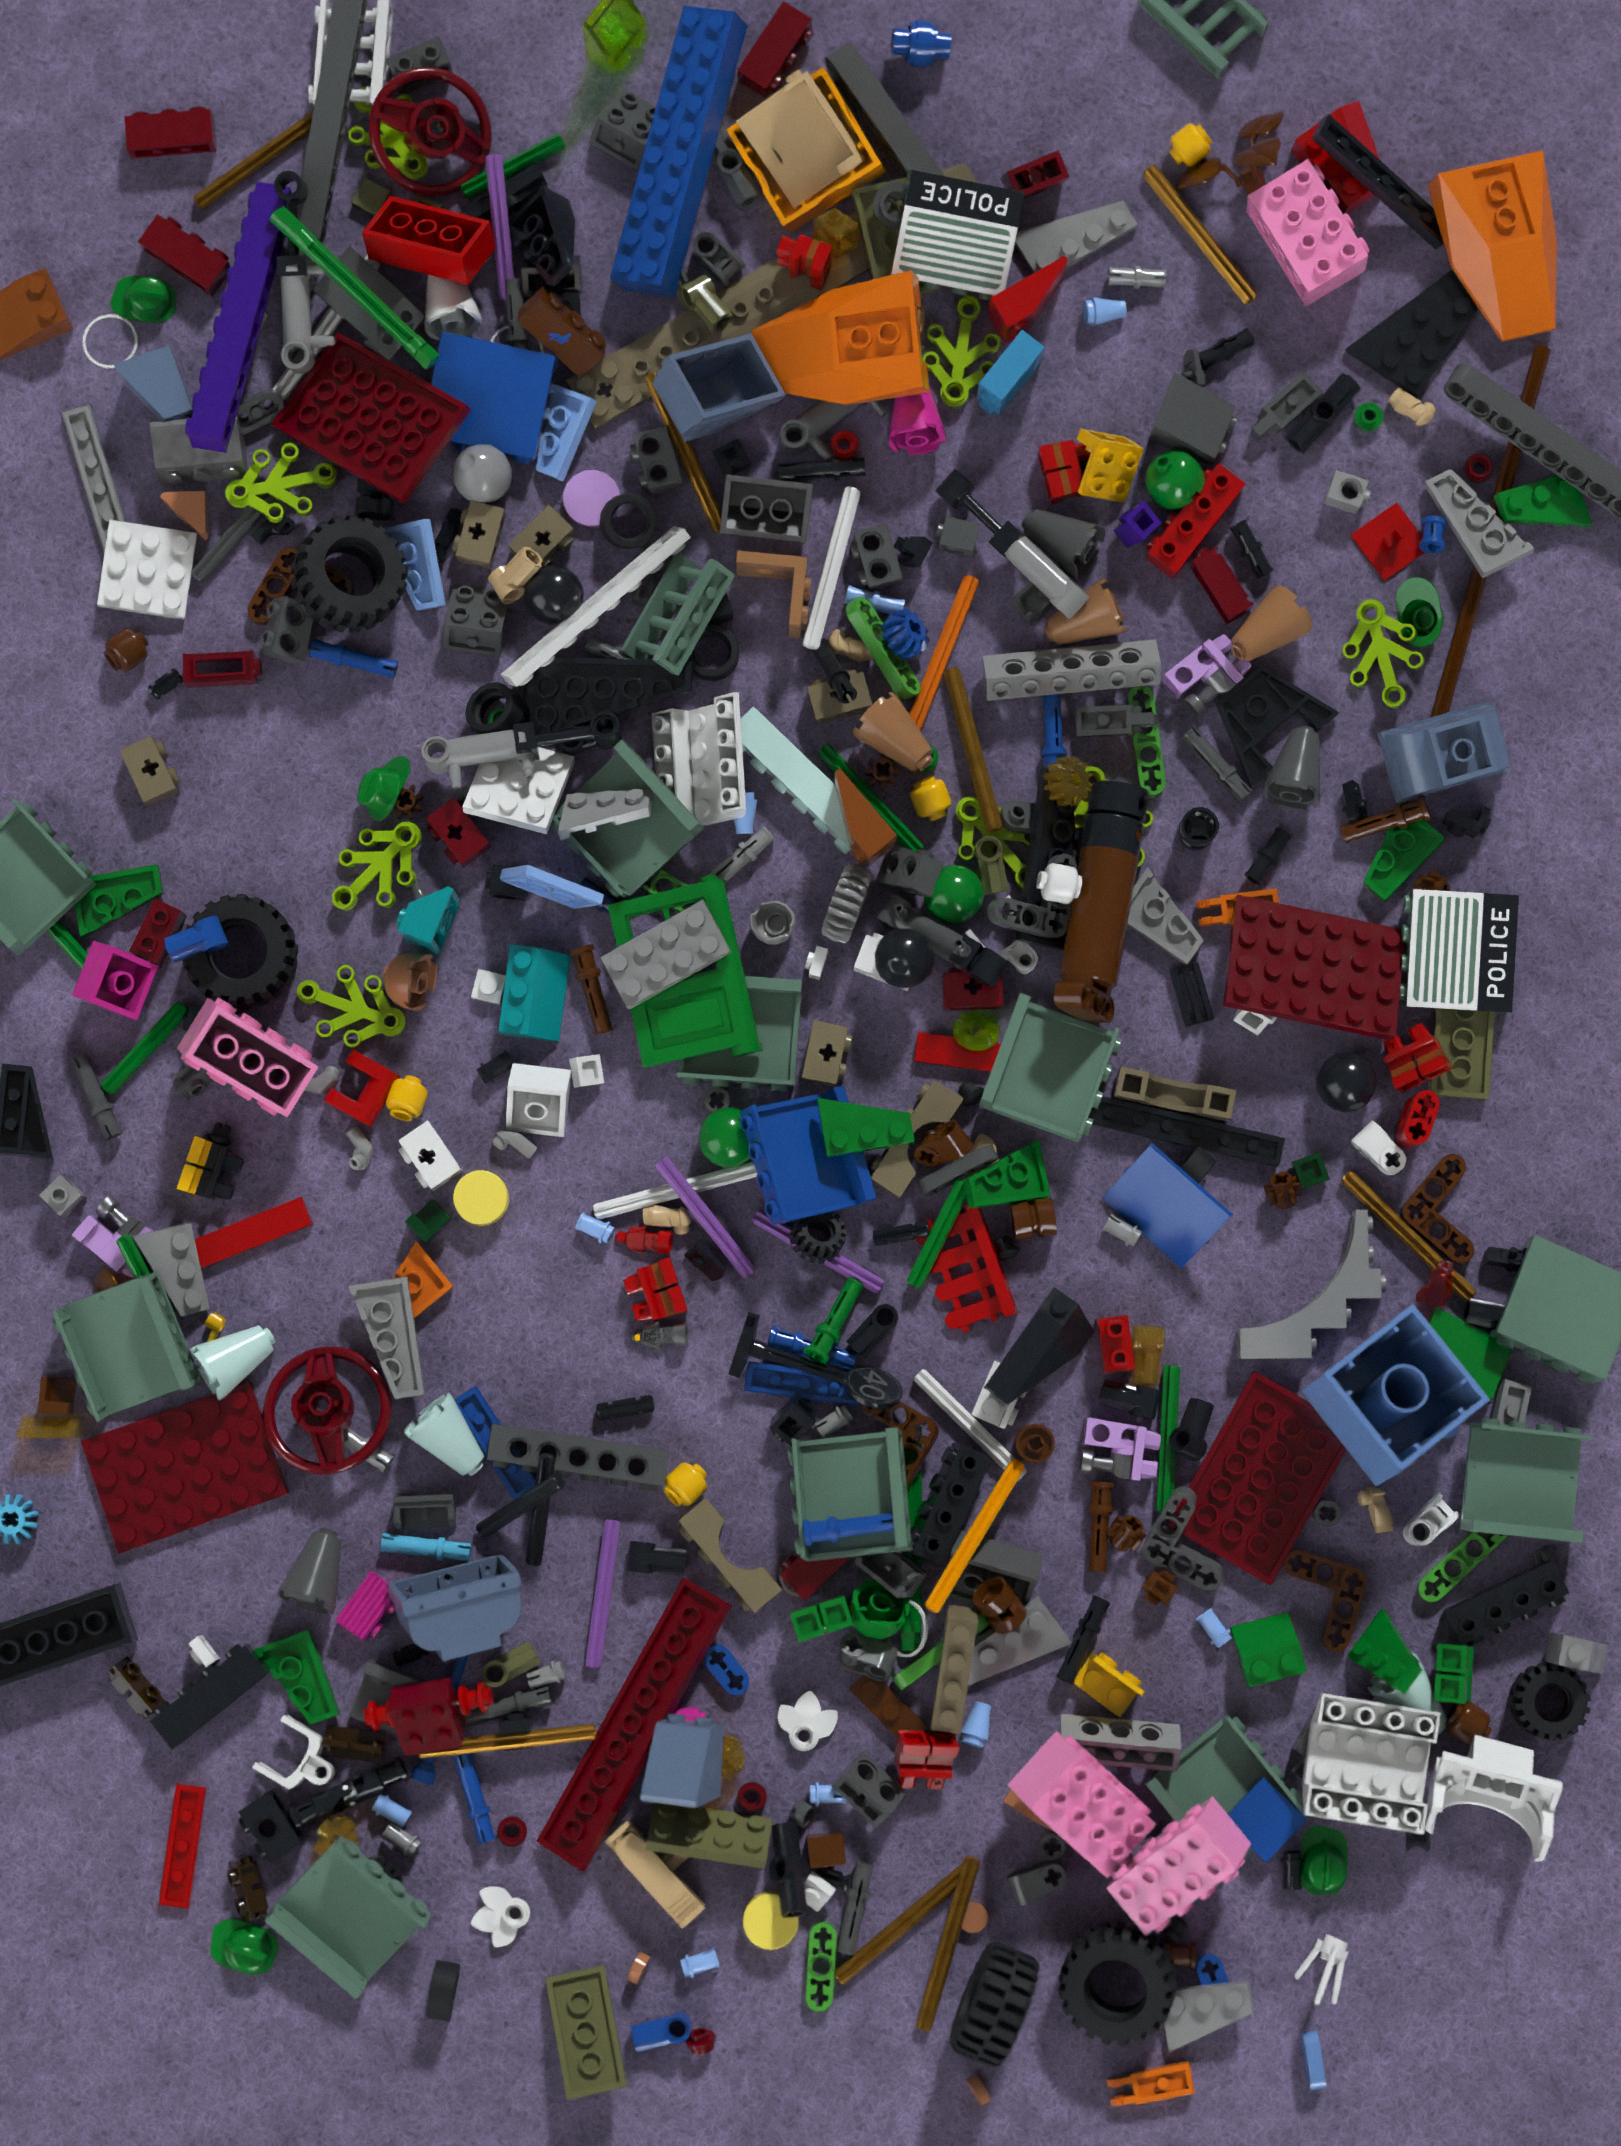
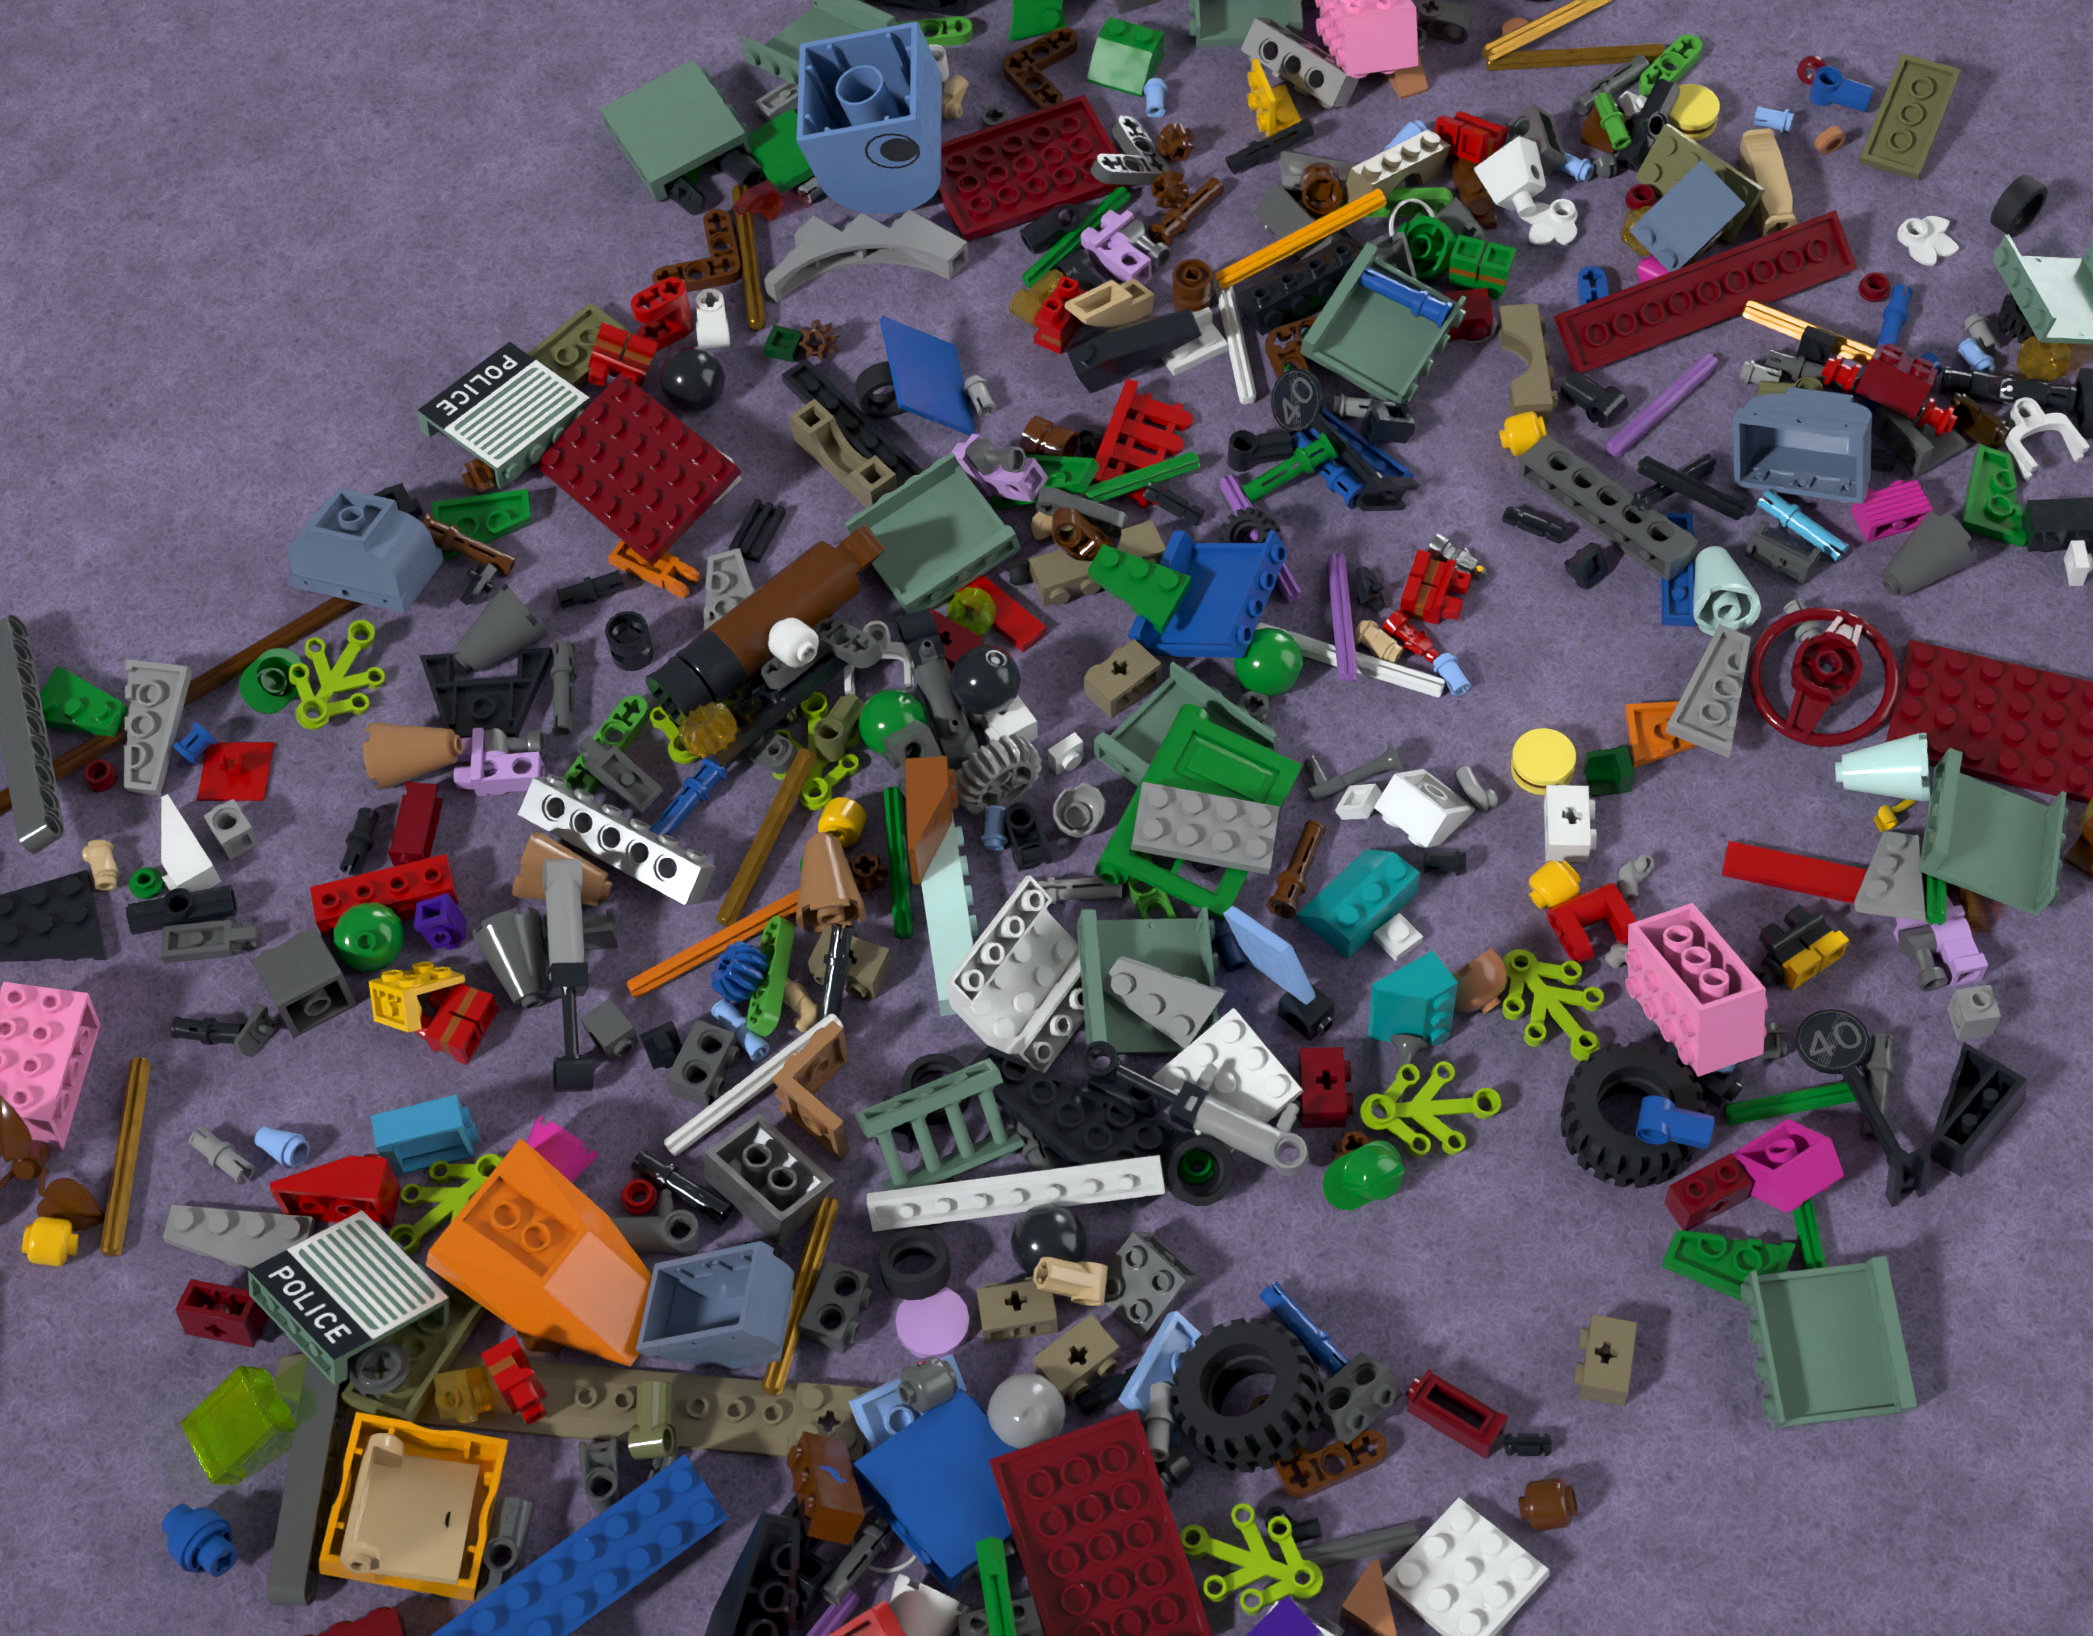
camera: 135 degrees left, 25 degrees down
(140, 1105) = (1838, 1044): none -> black piece
(391, 518) = (1159, 1420): none -> light grey pin
(553, 441) = (927, 1384): none -> dark grey head
(559, 1393) = (1587, 565): none -> black tile
(619, 1070) = (1325, 787): none -> dark grey piece
(790, 874) = (1027, 841): none -> black piece
(817, 1845) = (1612, 121): none -> bright green axle
(818, 864) = (994, 833): none -> light blue pin
(859, 1734) = (1514, 176): none -> white torso
(957, 118) = (236, 1423): none -> clear neon green panel
(1048, 1155) = (1000, 472): none -> lavender hips
(1081, 1374) = (1112, 304): none -> tan slope
(1359, 450) = (182, 854): none -> white slope

